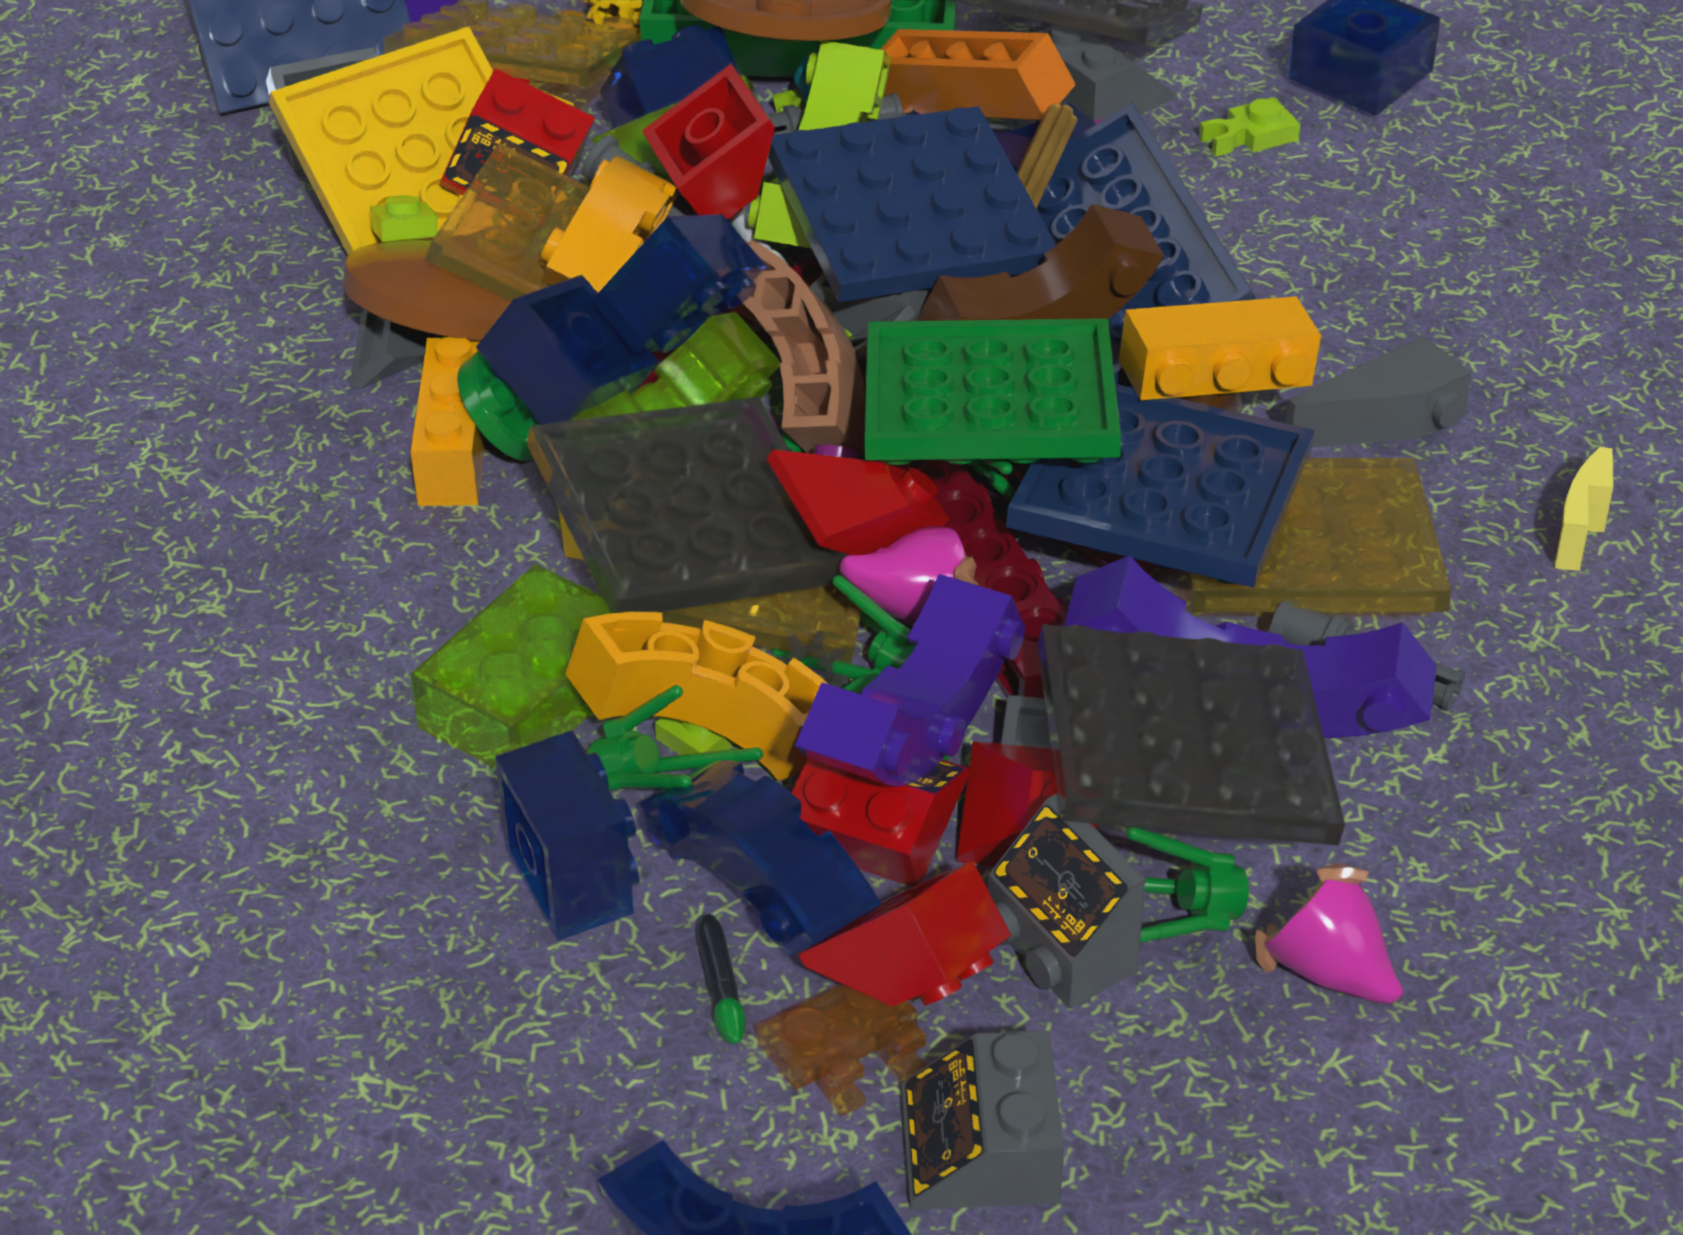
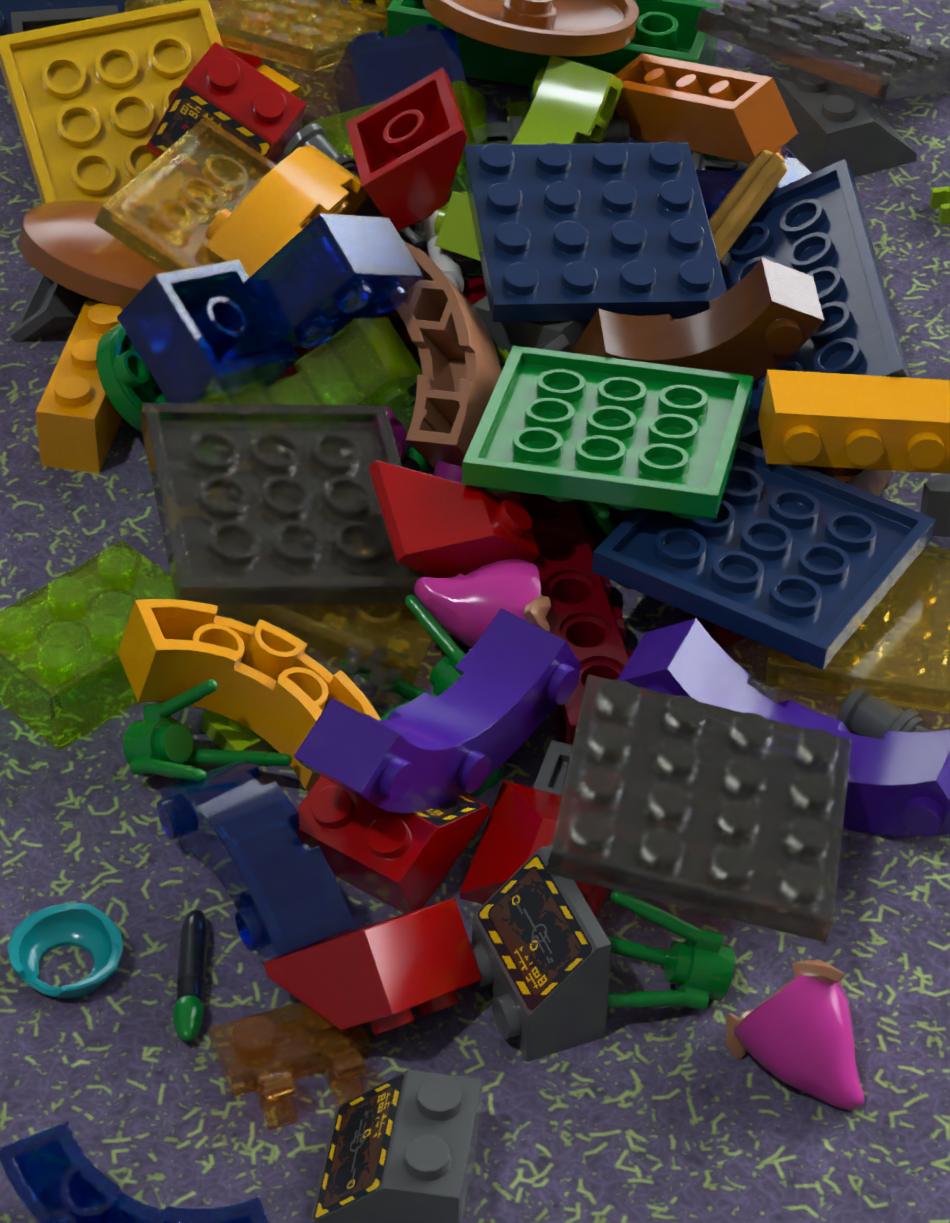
camera: 10 degrees right, 0 degrees up
(403, 219) = (96, 179): lime plate -> none
(567, 834) = (76, 808): clear blue brick -> none
(591, 949) = (62, 926): none -> teal piece

